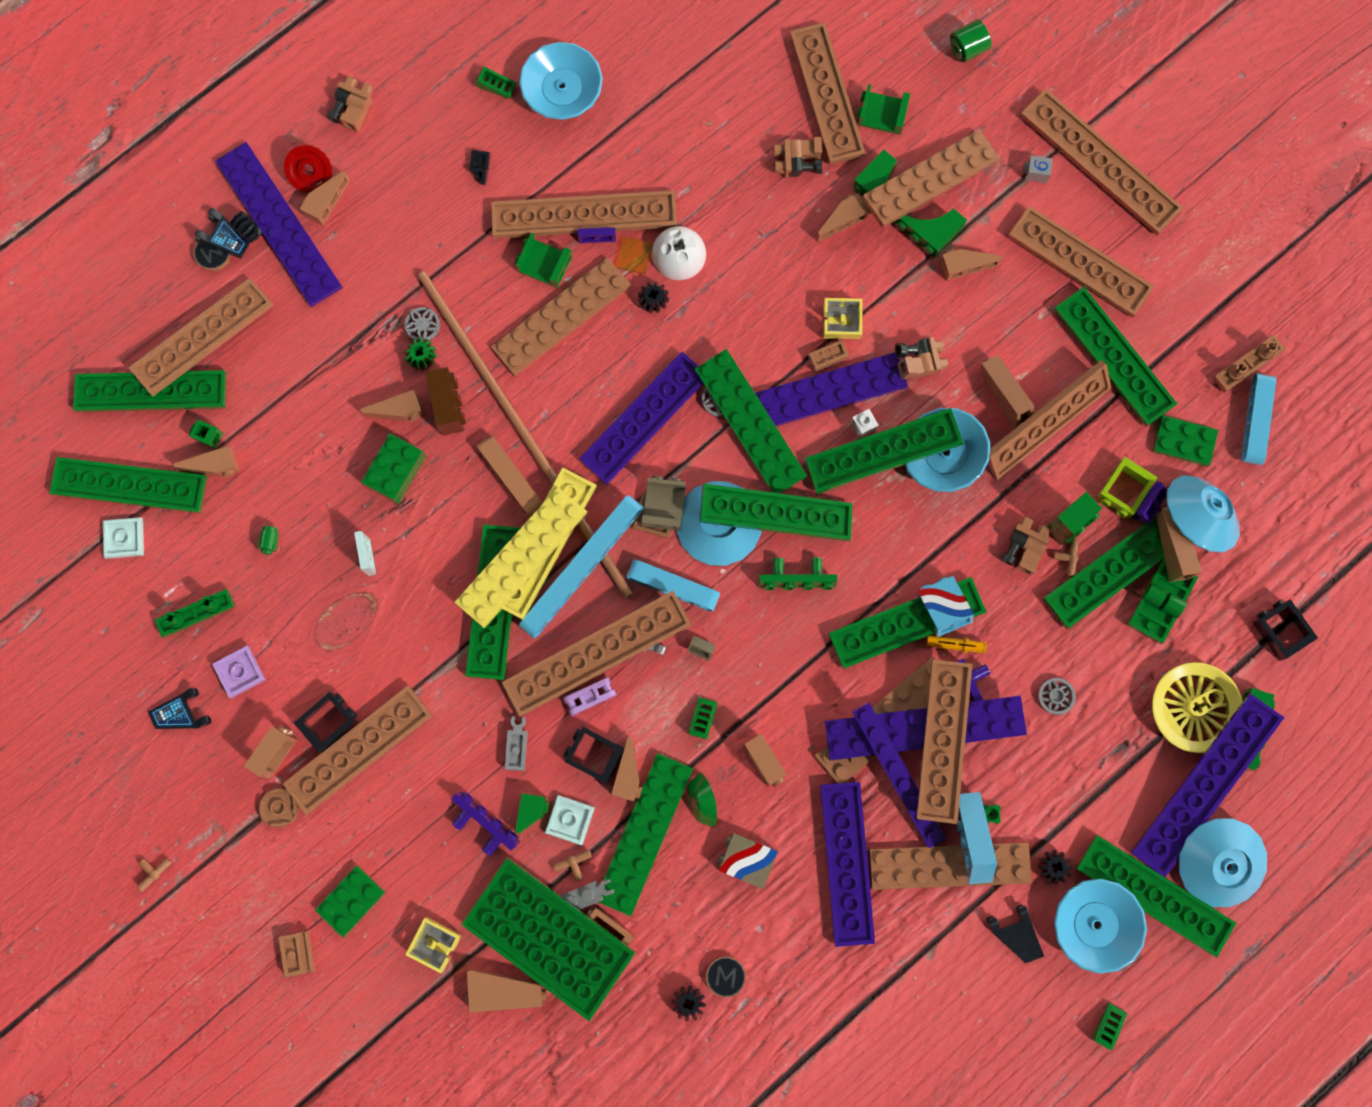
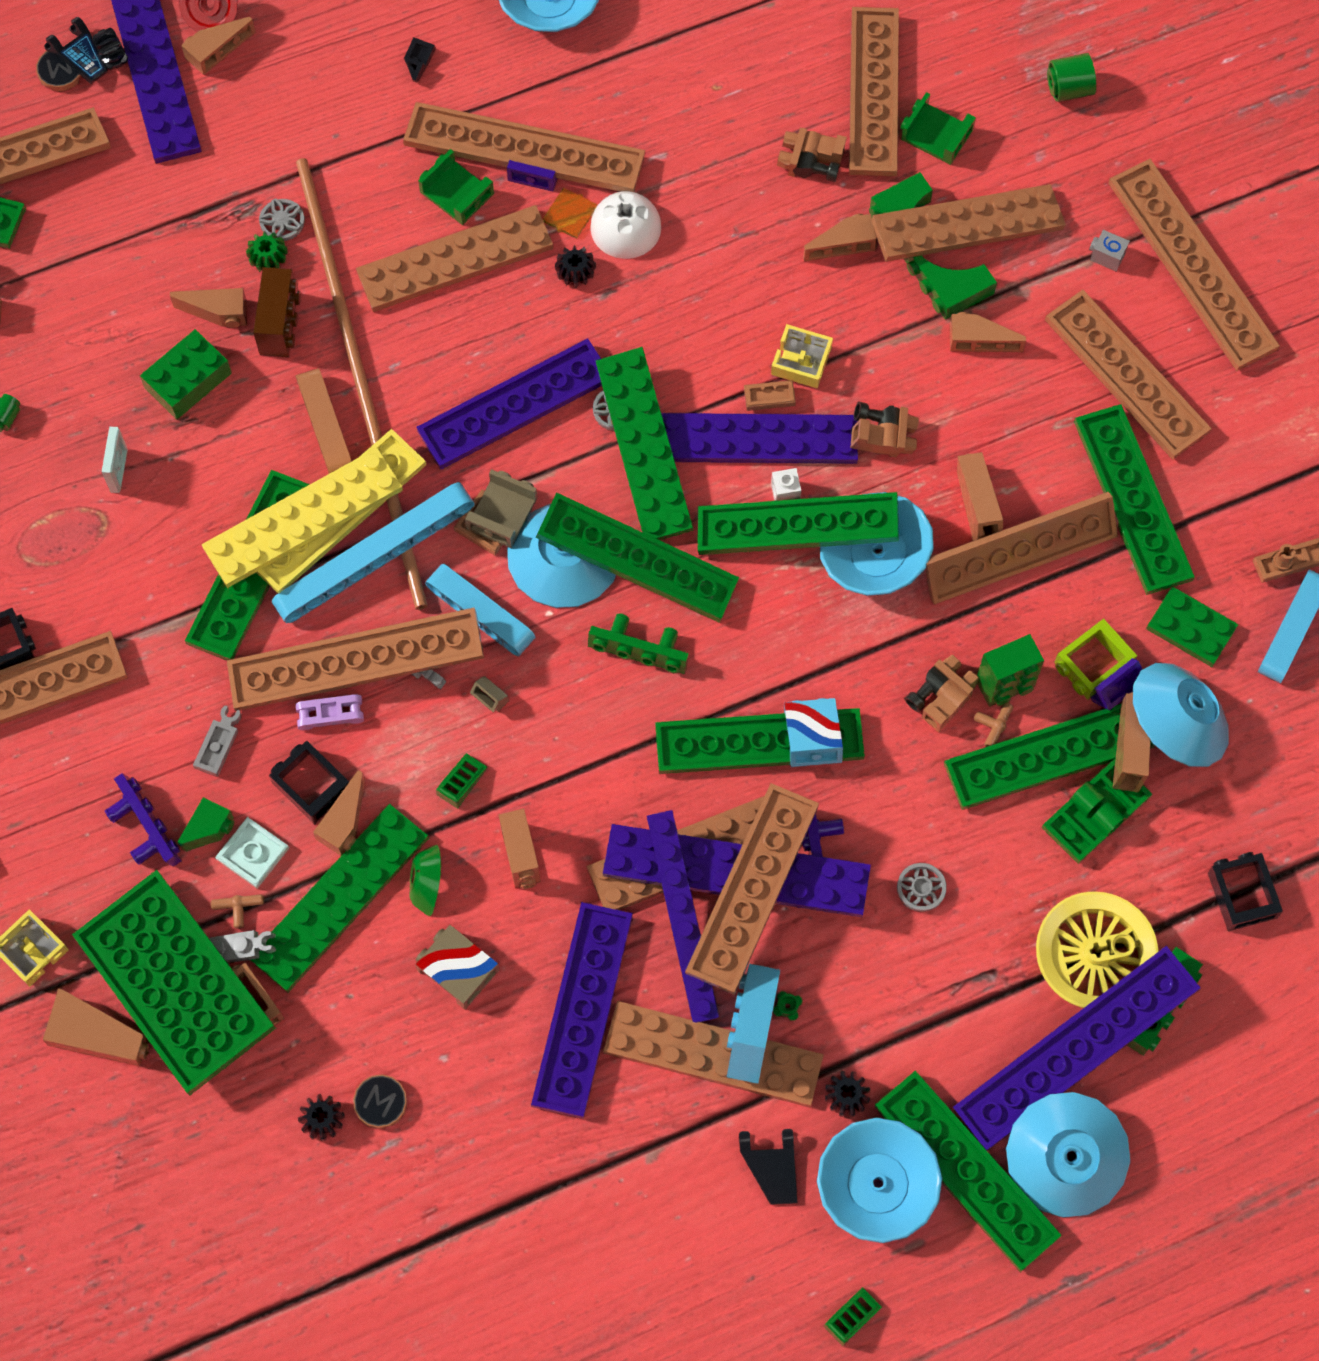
camera: 15 degrees right, 10 degrees down
(979, 647) = (813, 785): light orange pin -> none

